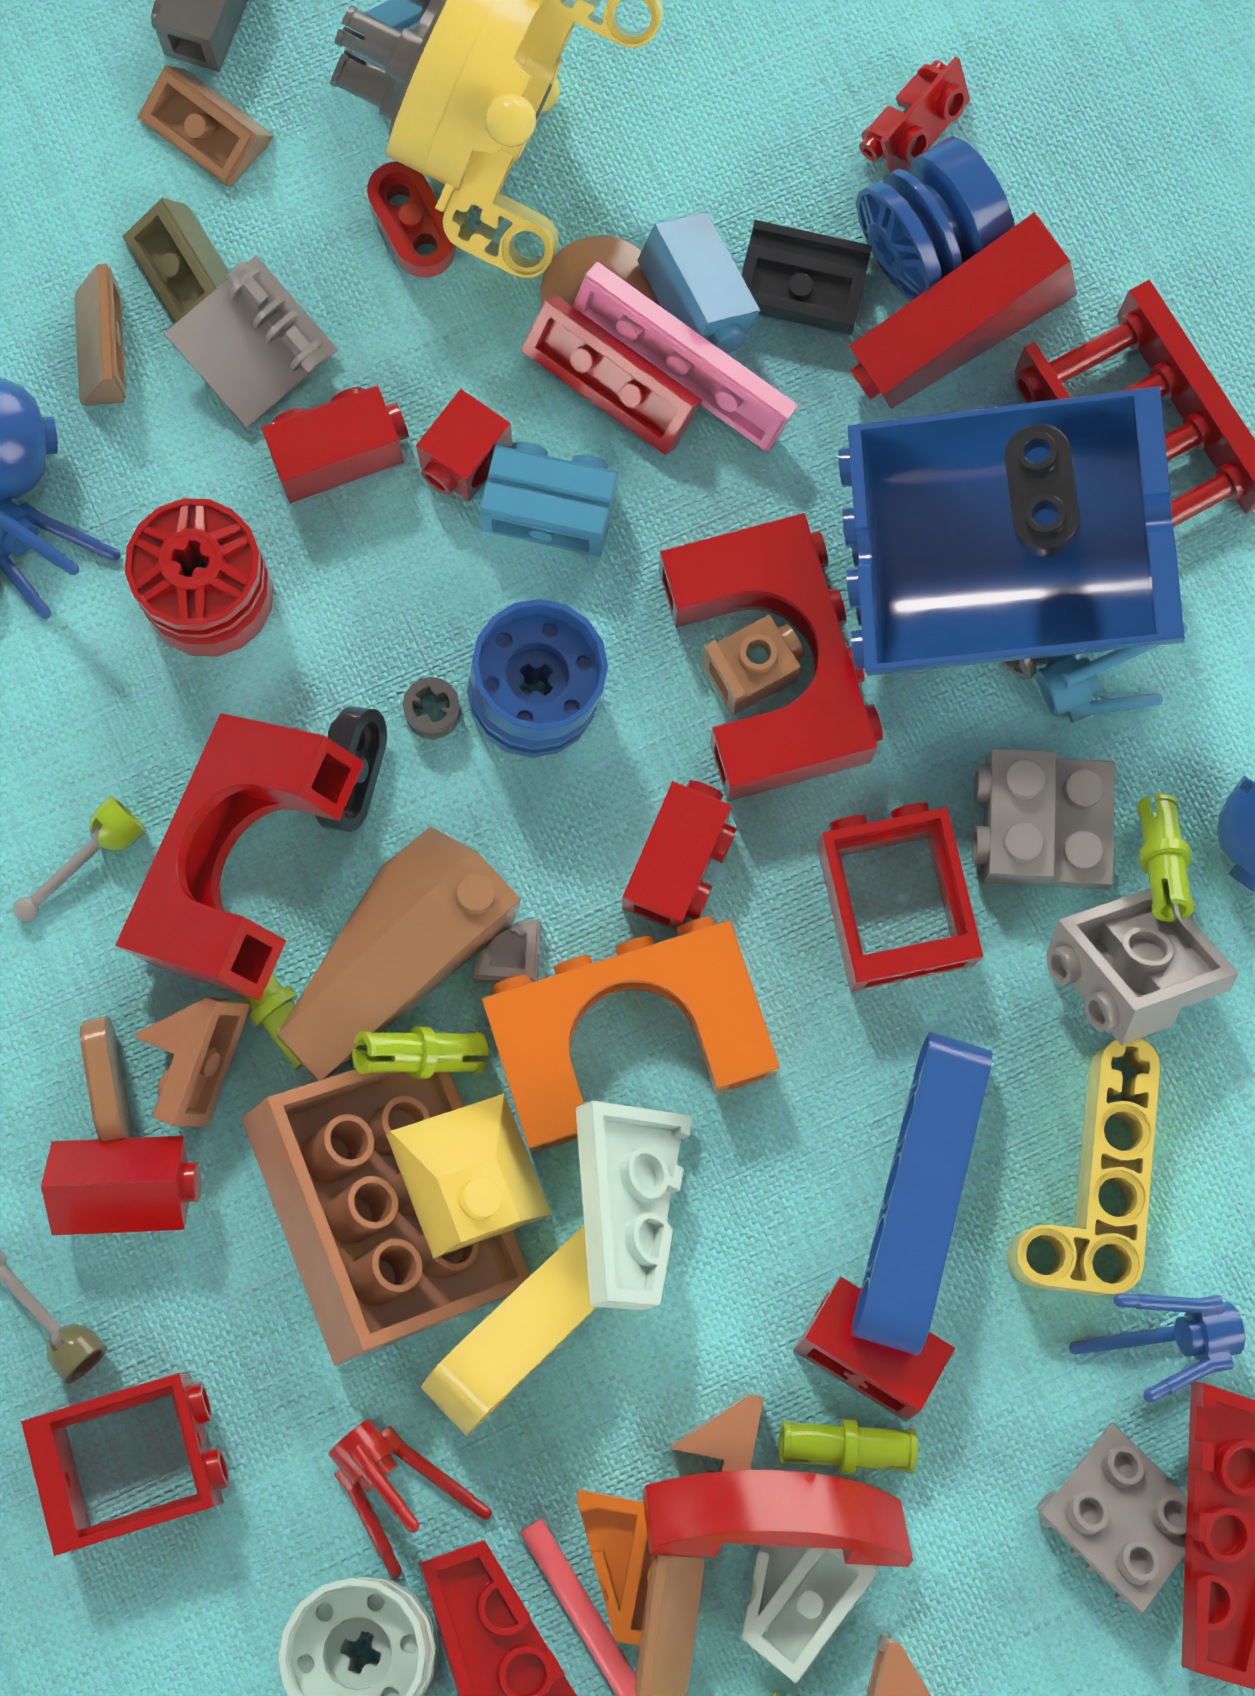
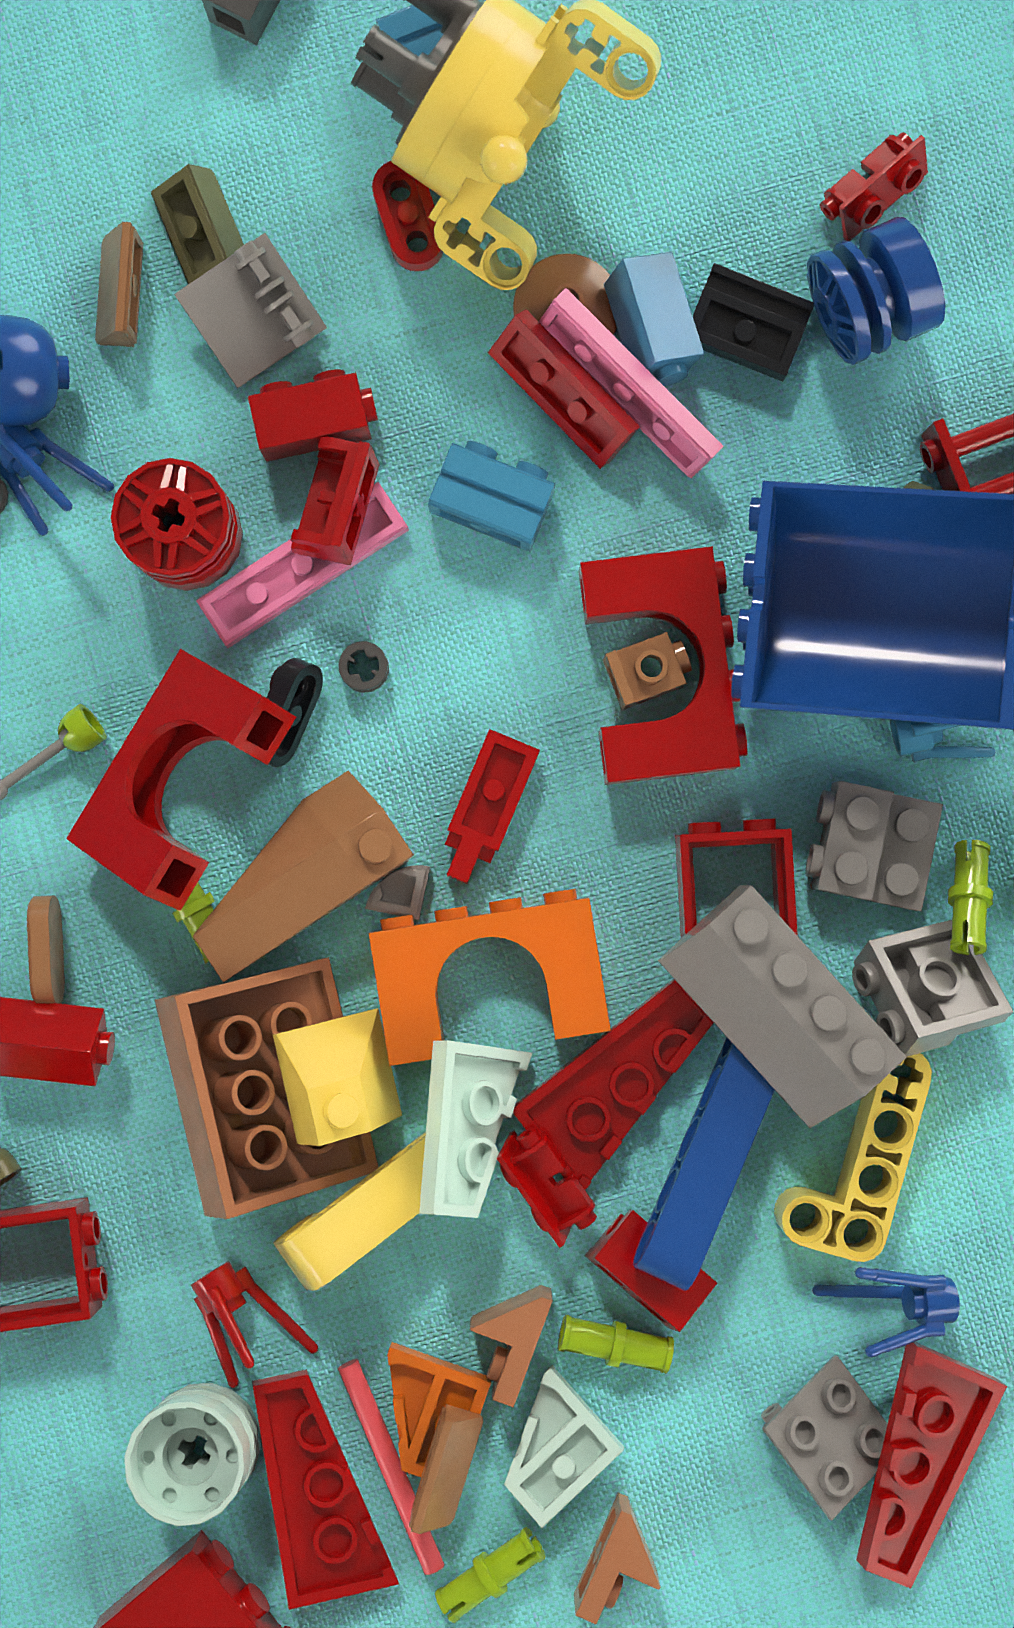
camera: 10 degrees right, 10 degrees up
(203, 124) = (236, 95): medium nougat slope -> none
(203, 1047) = (127, 941): nougat slope -> none
(346, 608) = (287, 578): none -> bright pink tile
(375, 526) = (336, 501): none -> red hinge
(419, 1052) = (310, 969): lime pin -> none
(461, 445) = (423, 435): red brick -> none
(532, 645) = (464, 629): blue wheel -> none
(597, 837) = (488, 802): none -> red hinge
(677, 853) = (555, 829): red brick -> none
(745, 1284) = (529, 1165): none -> red hinge
(777, 1509) = (546, 1396): slope -> none
(784, 1145) = (614, 1081): none -> red wing
(965, 313) = (885, 381): red slope -> none
(972, 1004) = (781, 1007): none -> light grey slope
(1042, 487) = (923, 571): black plate -> none

